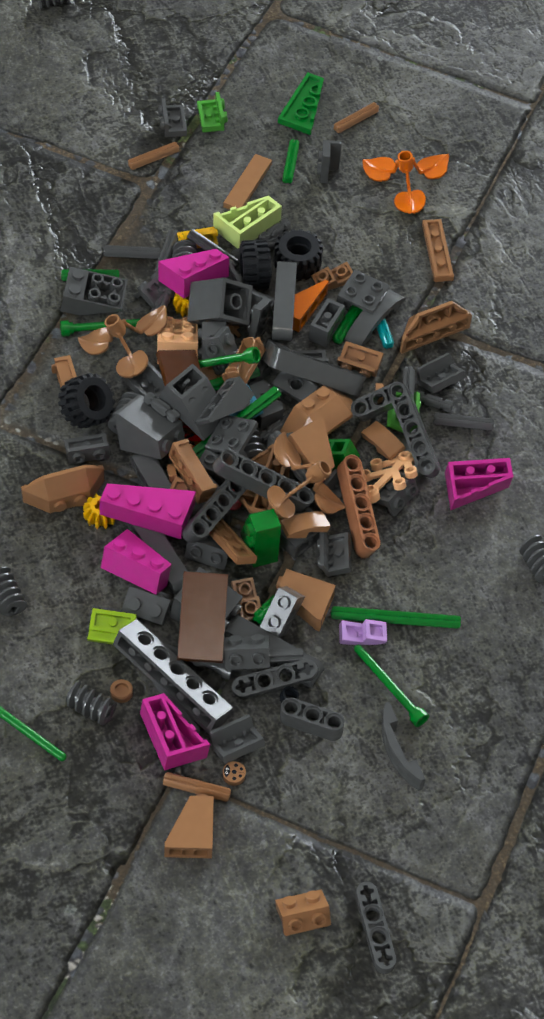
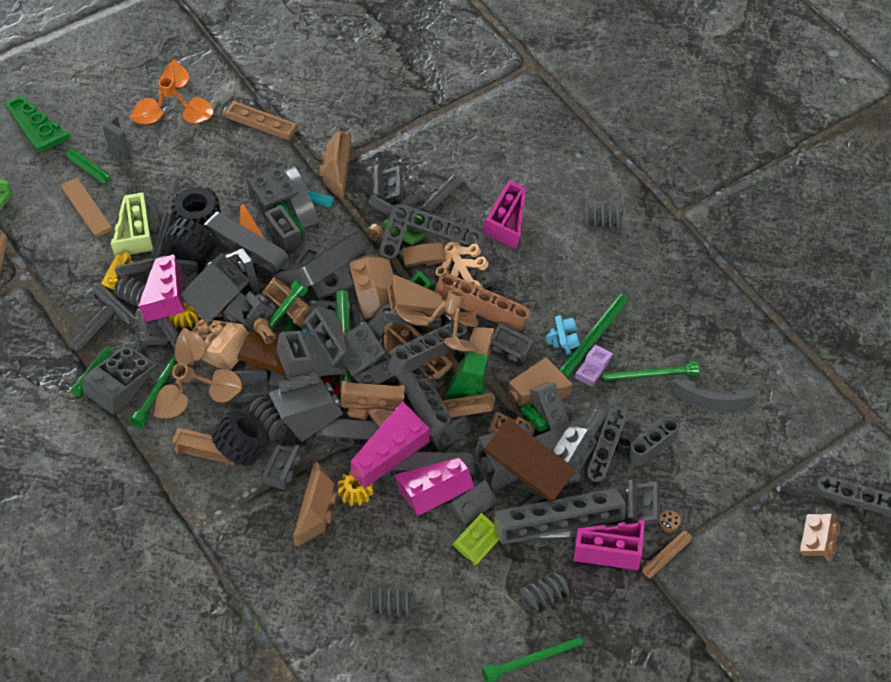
camera: 55 degrees left, 0 degrees up
(121, 691) = (542, 564): medium nougat tile -> none
(193, 830) = (707, 574): medium nougat slope -> none
(201, 355) = (261, 326): none -> medium nougat pin
(336, 277) = (234, 199): medium nougat slope -> none
(356, 117) = (80, 98): medium nougat axle -> none
(360, 359) = (333, 227): medium nougat bracket -> none
(374, 590) = (562, 337): none -> medium azure hips

